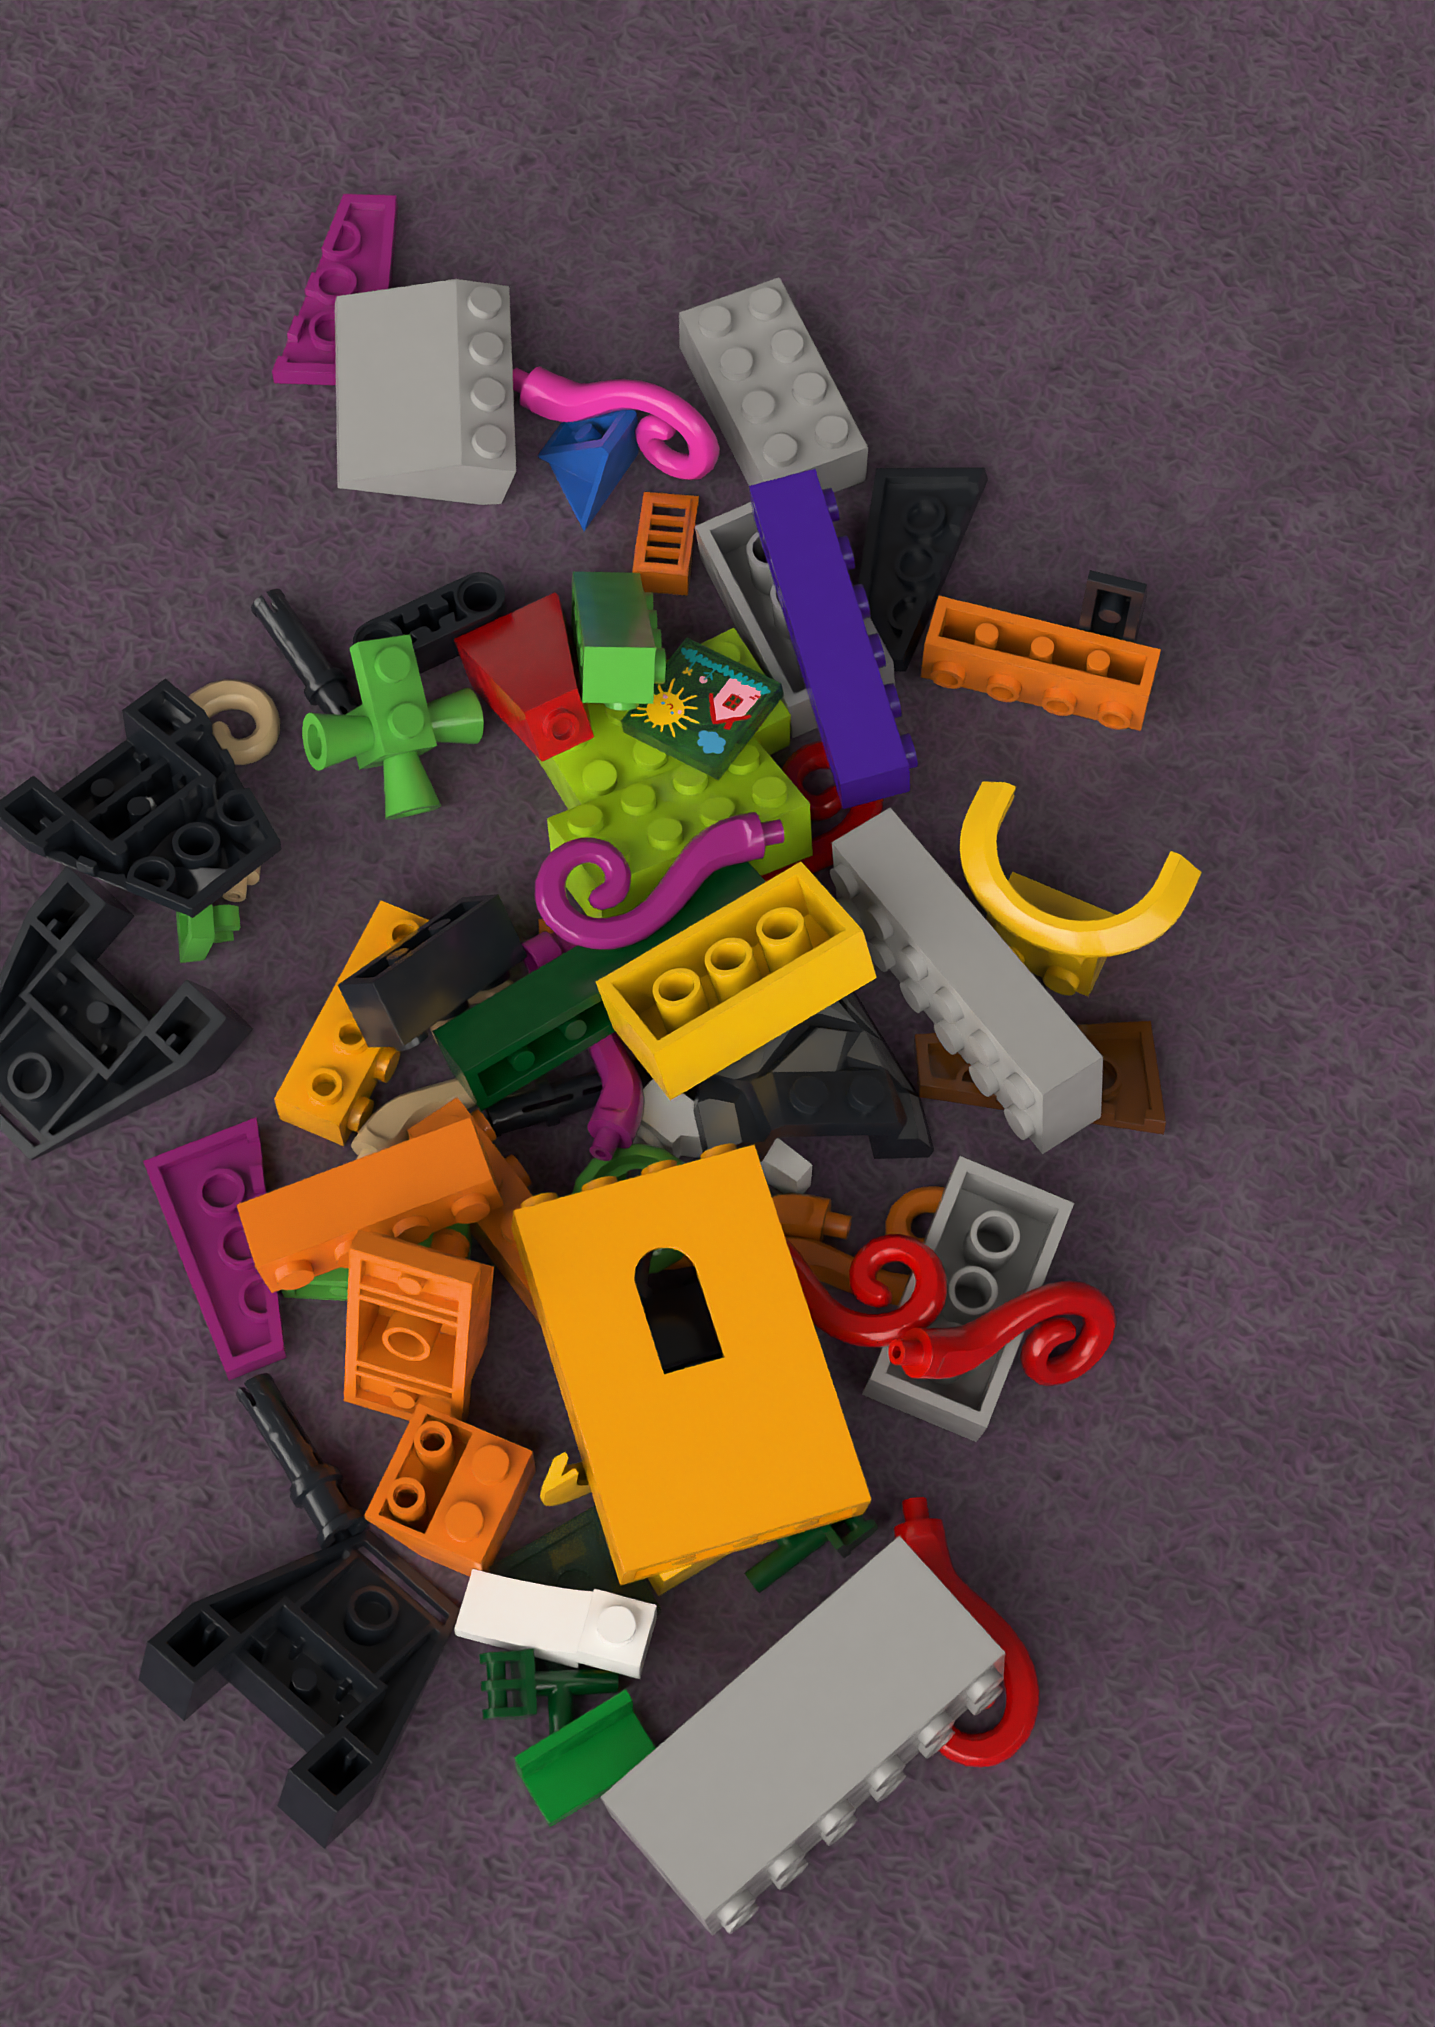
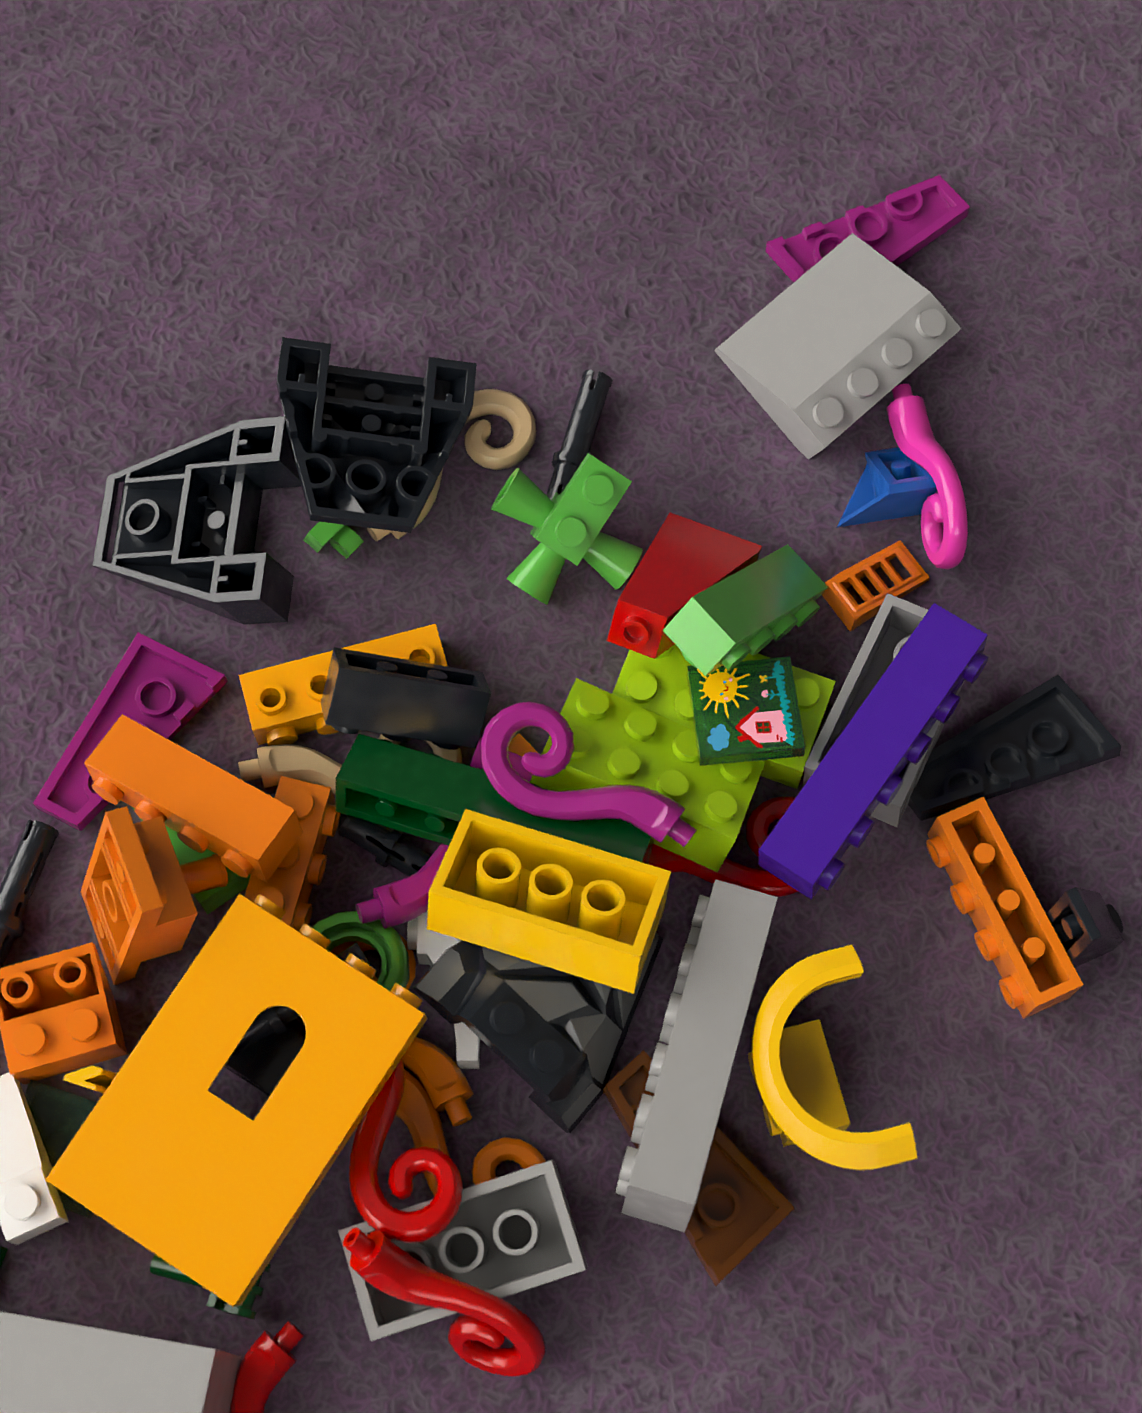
camera: 50 degrees right, 5 degrees up
(438, 613) = (680, 480): black beam -> none
(771, 388) = (1048, 561): light grey brick -> none

